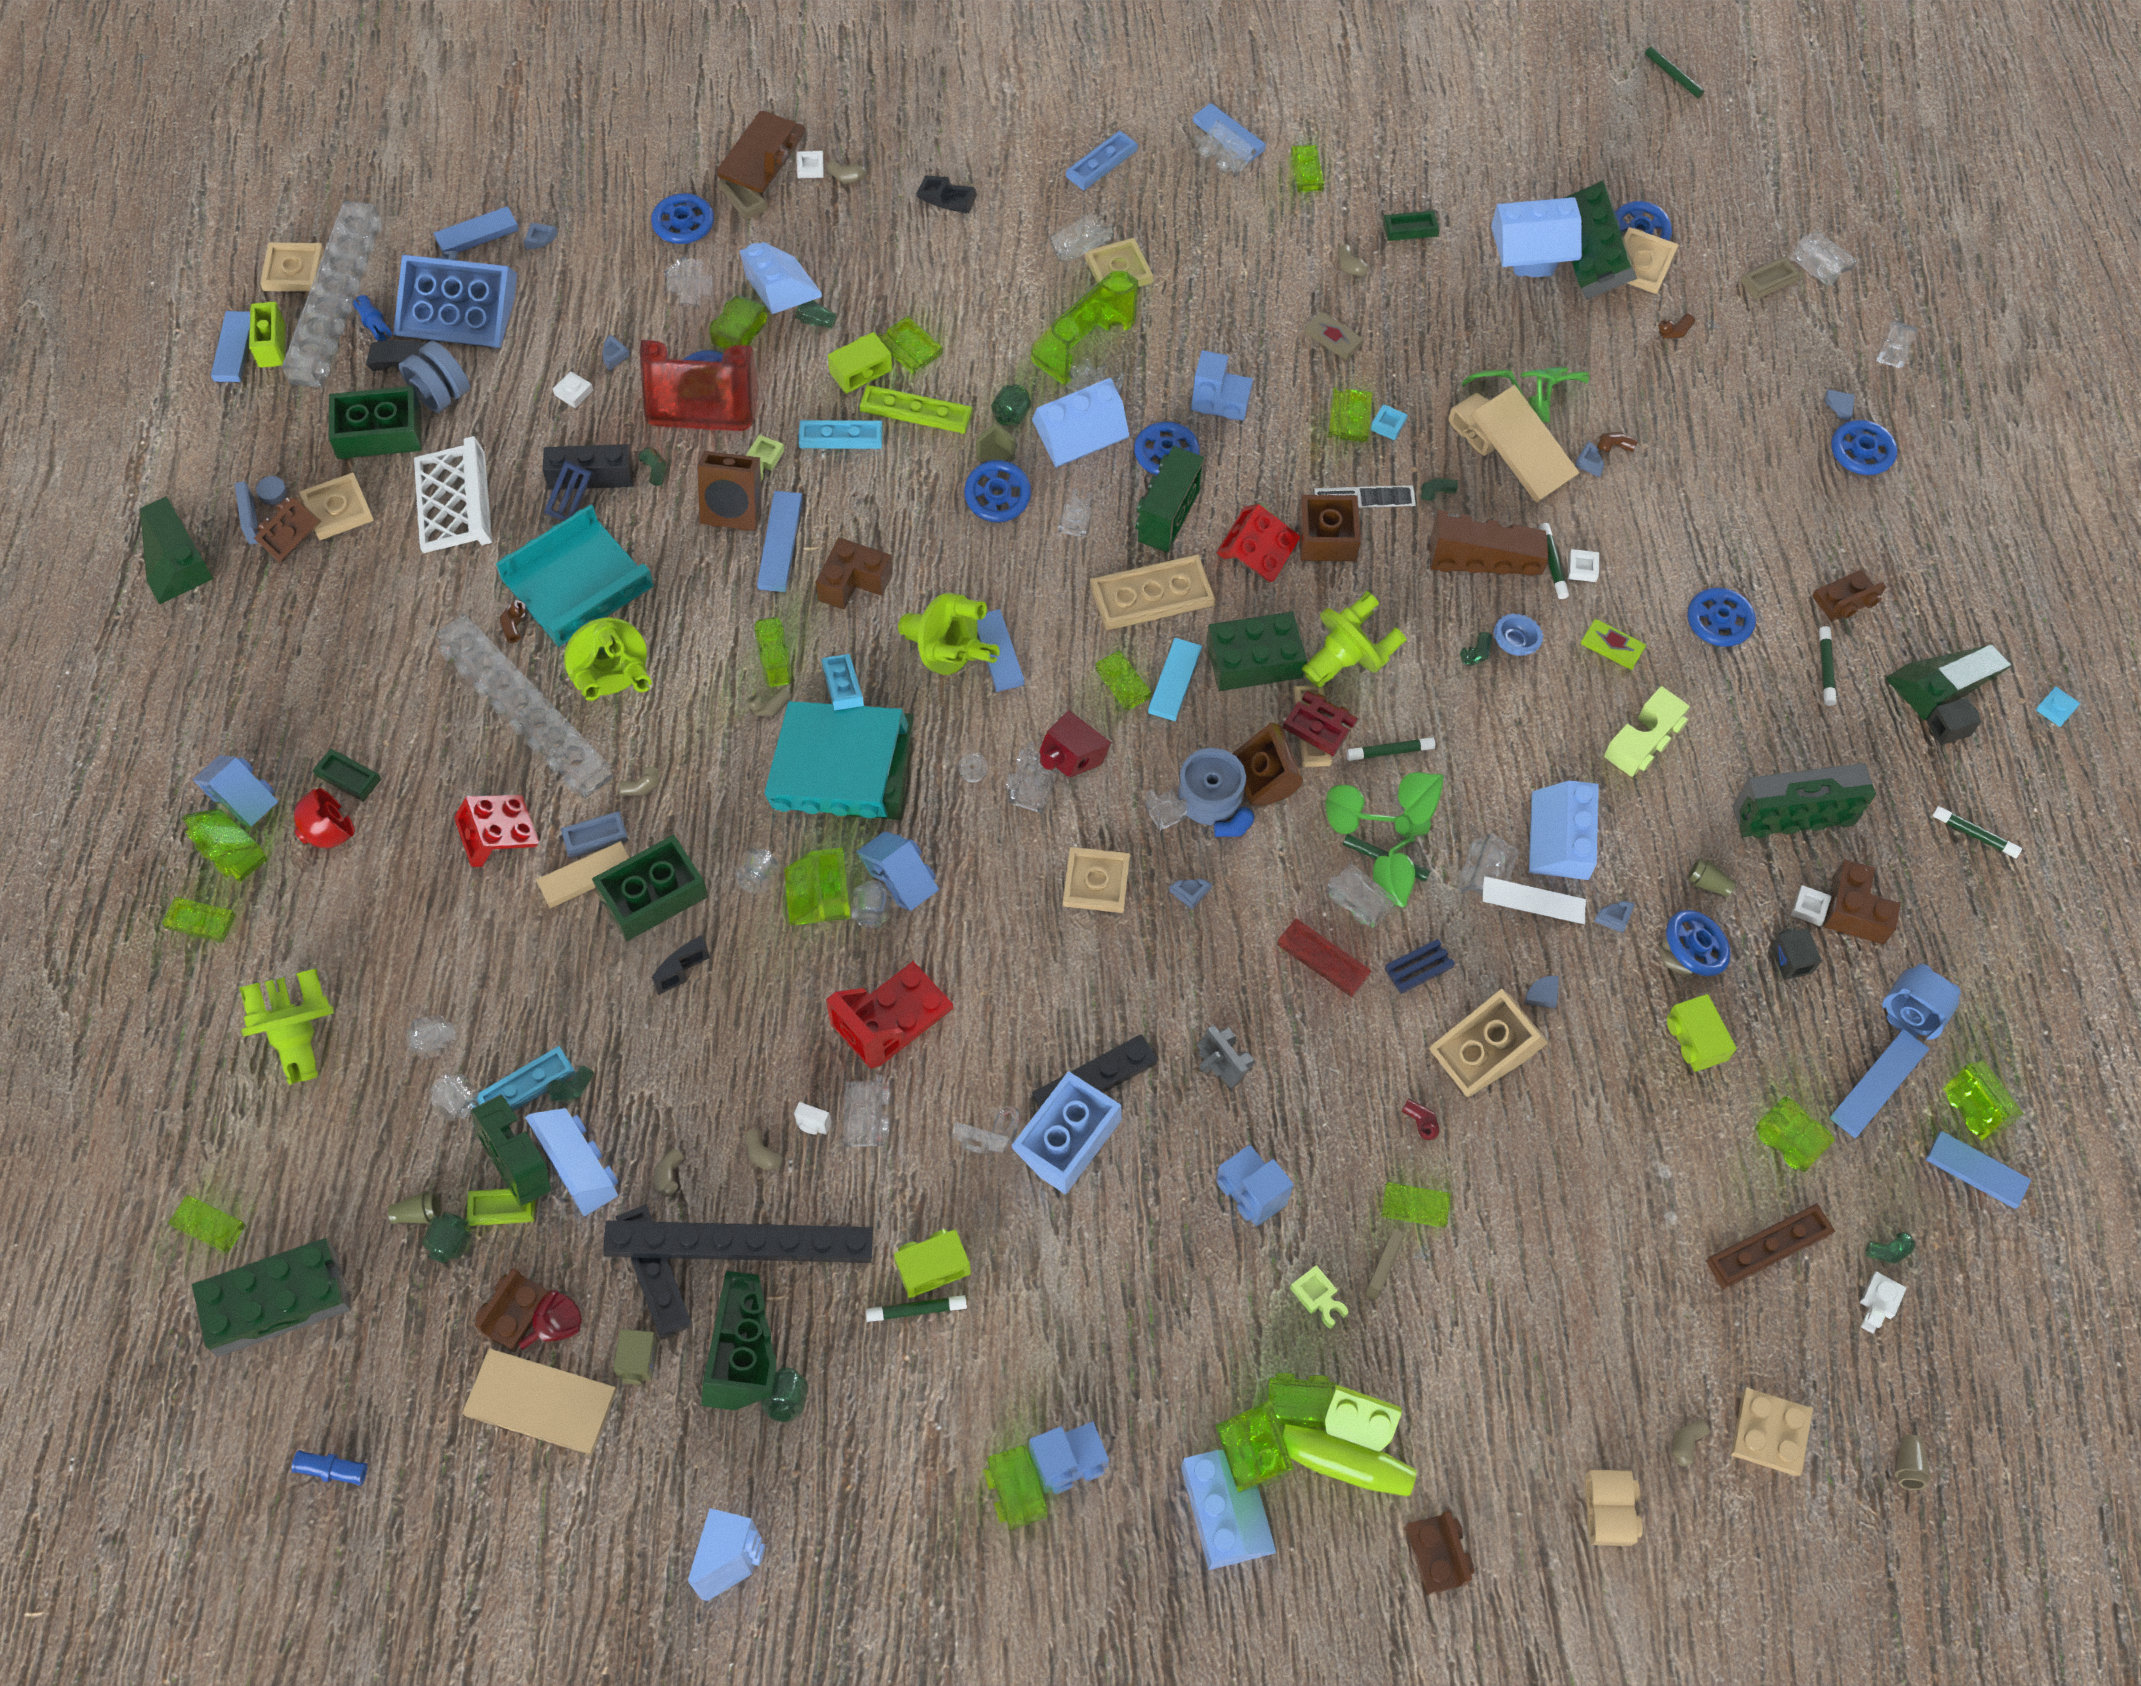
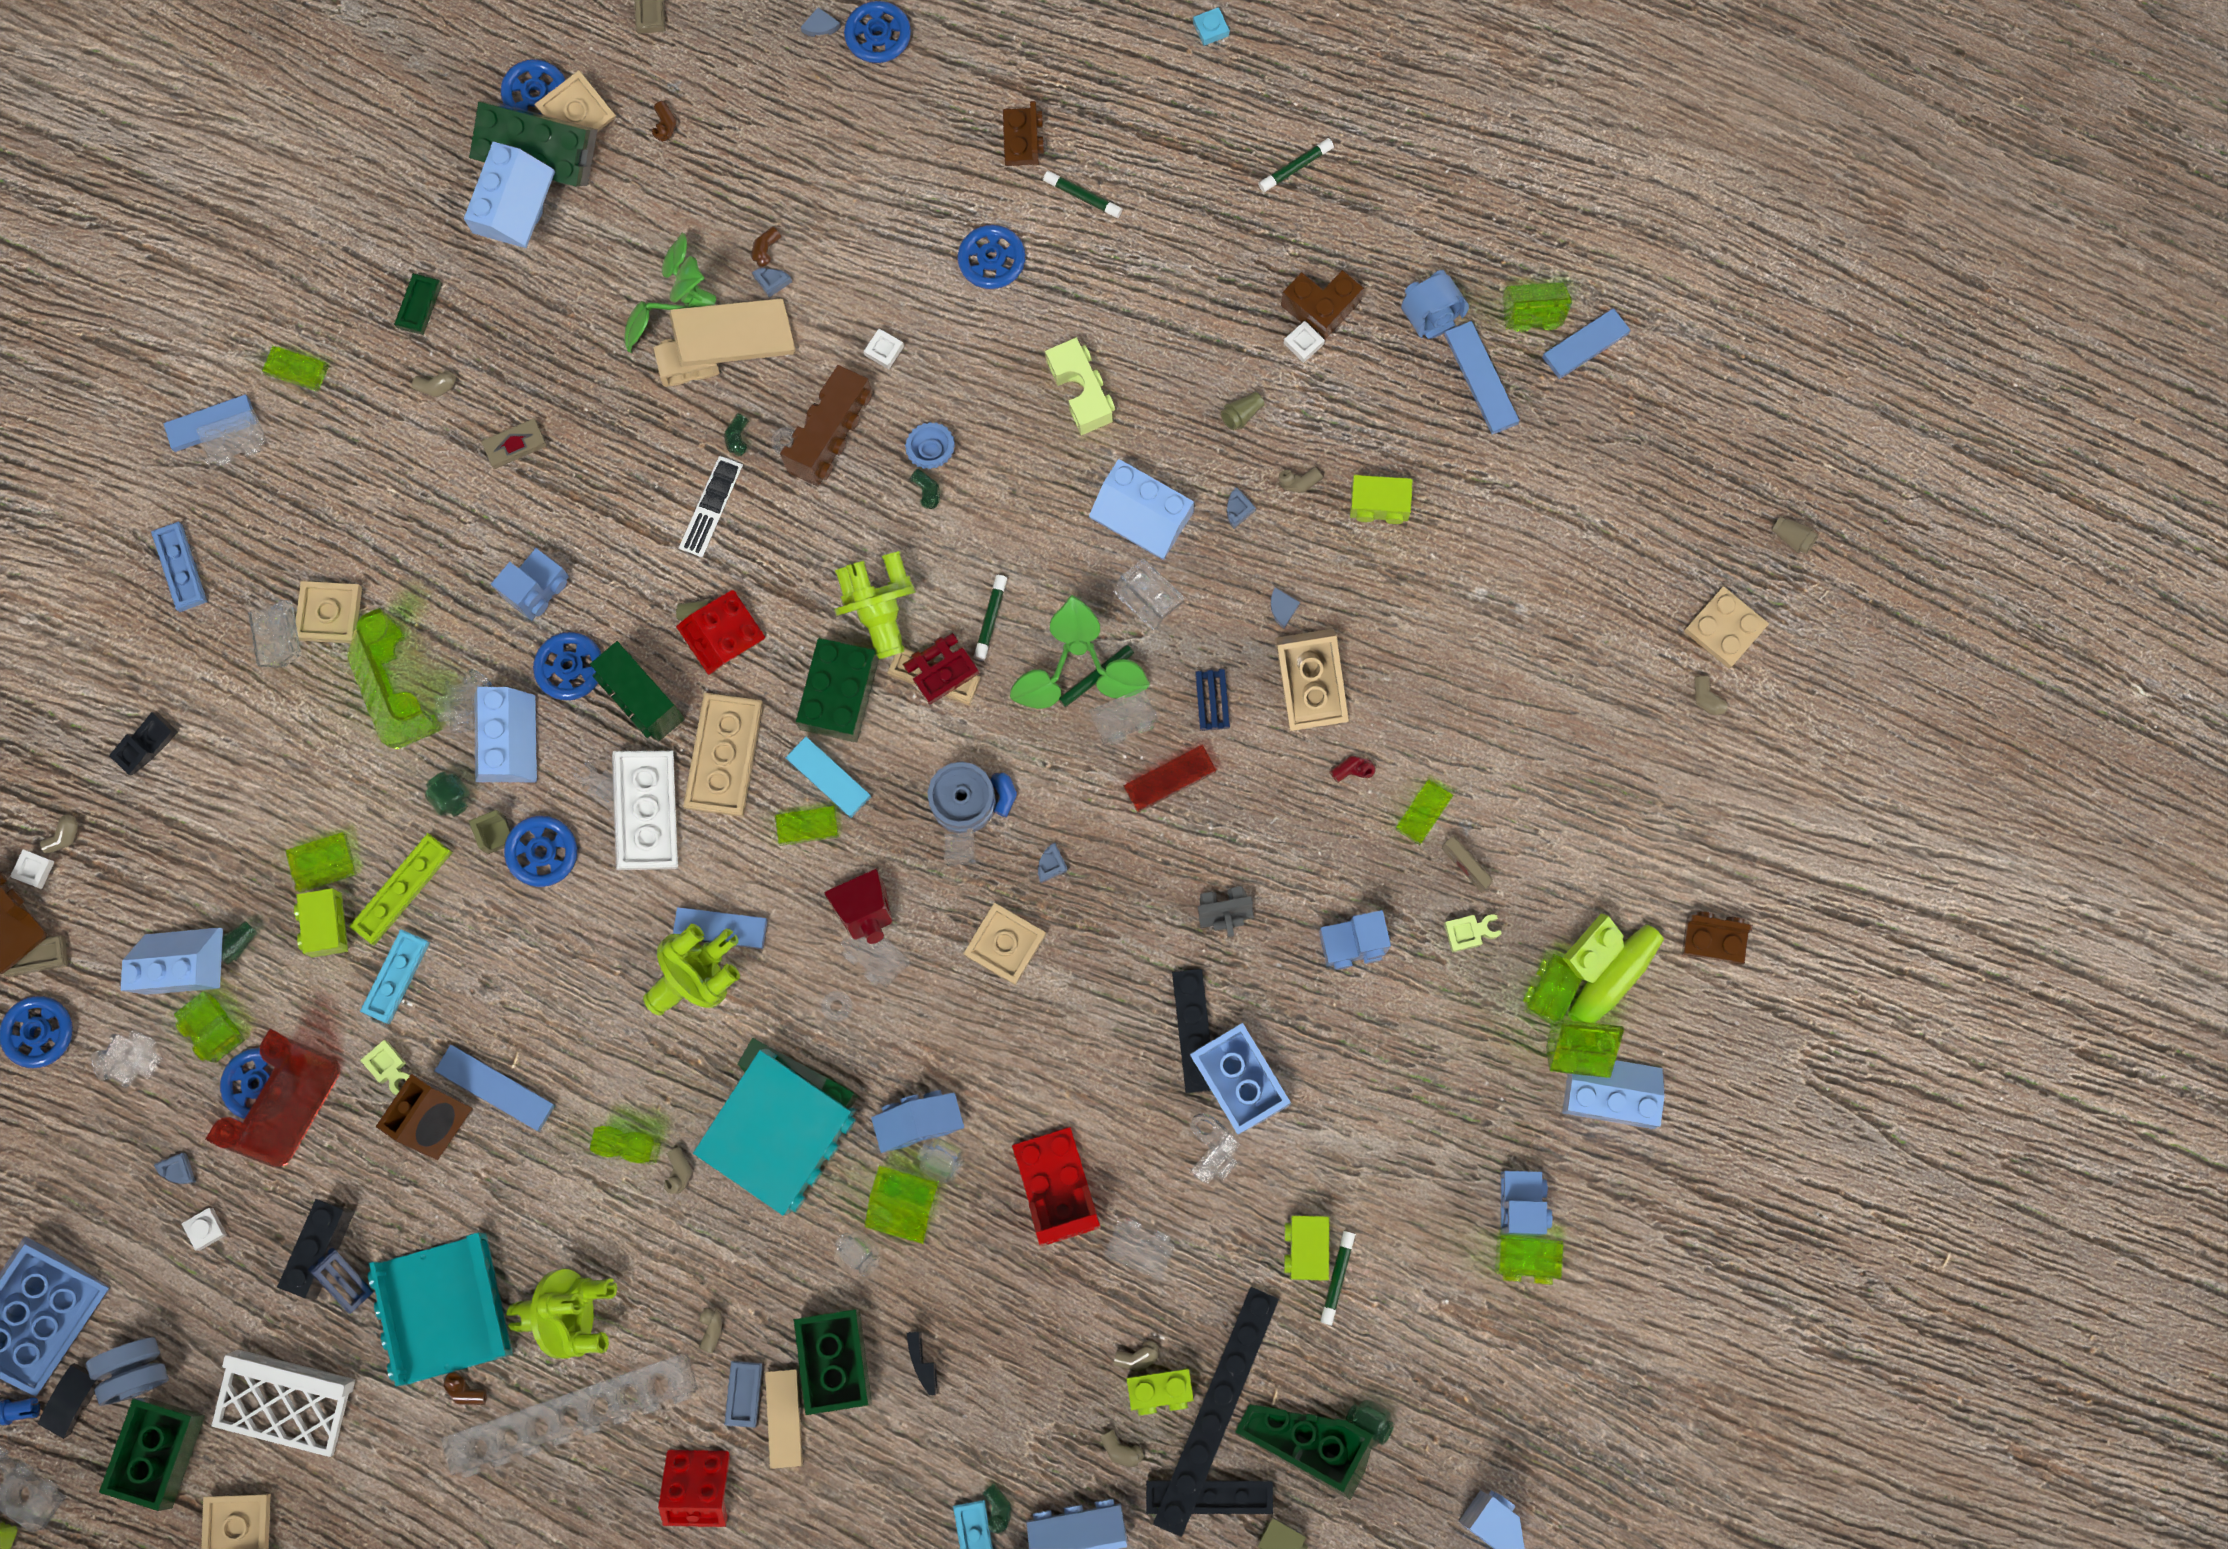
camera: 60 degrees left, 15 degrees up
(651, 457) = (331, 1179): clear green arm -> none
(738, 1180) = (1160, 1389): none -> lime brick
(812, 1119) = (1129, 1300): white plate -> none
(842, 682) = (694, 1093): medium azure tile -> none
(852, 567) = (563, 1031): reddish brown brick -> none
(1071, 550) = (644, 810): none -> white tile
(1269, 766) = (964, 737): reddish brown brick -> none
(1329, 528) = (738, 559): reddish brown brick -> none
(1350, 414) = (615, 474): clear neon green plate -> none
(1389, 422) = (642, 443): medium azure plate -> none
(1534, 900) = (1196, 571): white sticker -> none
(1554, 564) = (870, 373): dark green bar -> none
(1612, 1508) = (1737, 785): tan brick -> none
(1613, 644) = (975, 366): lime tile -> none
(1698, 942) = (1298, 455): blue plate -> none
(1770, 1246) = (1579, 544): reddish brown tile -> none
(1794, 1134) = (1498, 472): clear neon green brick -> none
(1795, 953) = (1341, 379): pearl dark grey brick -> none
(1803, 800) = (1212, 293): dark green piece -> none
(1883, 1300) = (1659, 480): white plate -> none
(1894, 1251) = (1626, 450): clear green arm -> none
(1946, 677) = (1141, 103): dark green wedge -> none
(1954, 721) = (1188, 121): pearl dark grey brick -> none

